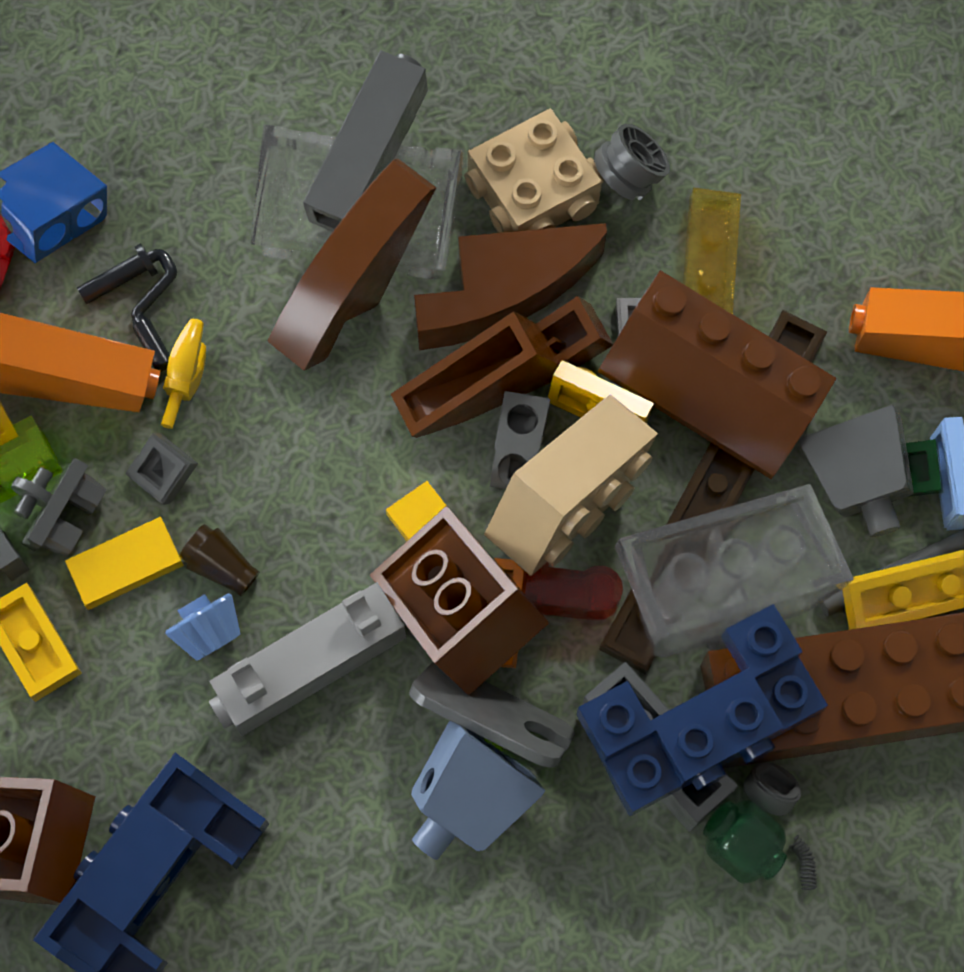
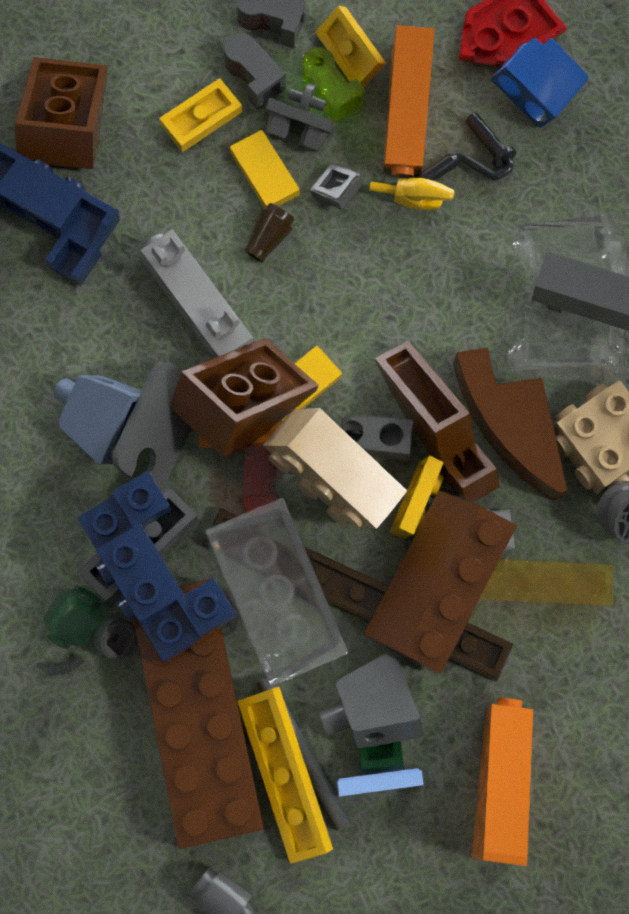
camera: 80 degrees right, 5 degrees up
(205, 626) = (216, 226): medium blue piece -> none
(352, 265) = (504, 297): reddish brown slope -> none

